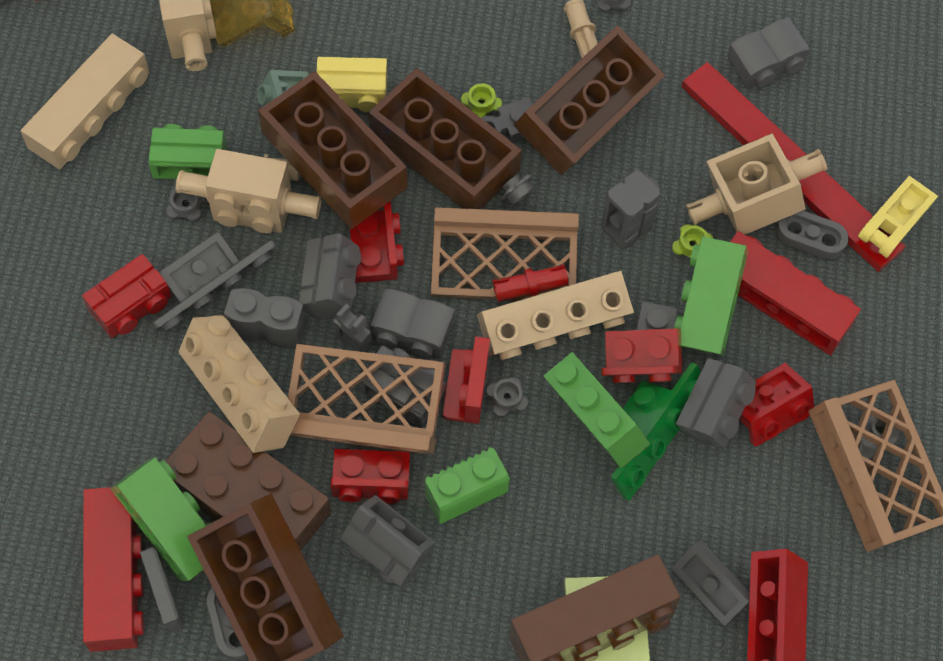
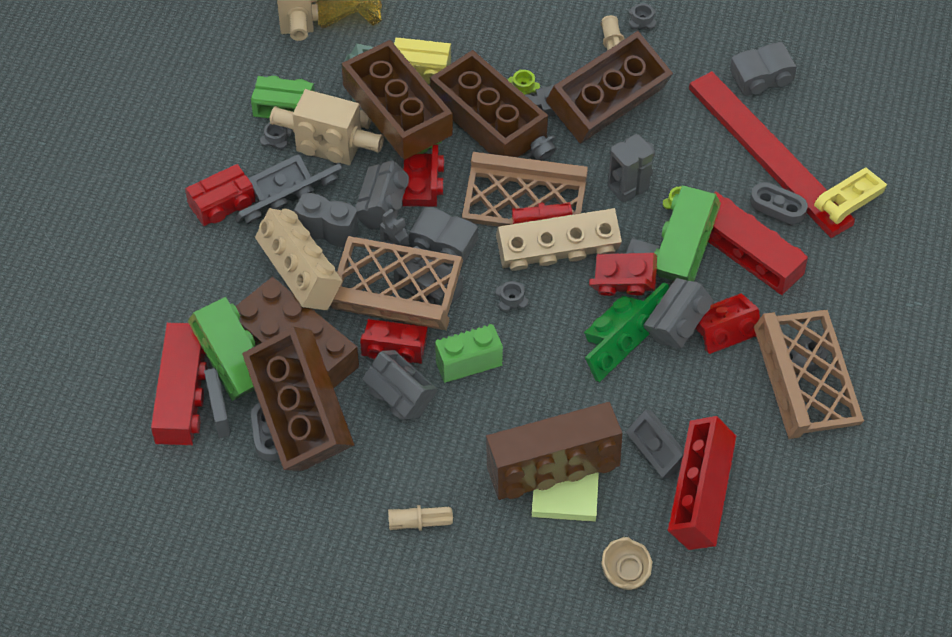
camera: 10 degrees right, 10 degrees down
(85, 101) = (208, 54): tan brick -> none
(467, 382) = (481, 281): red bracket -> none
(597, 410) = (580, 306): bright green brick -> none
(756, 185) = (735, 159): tan brick -> none

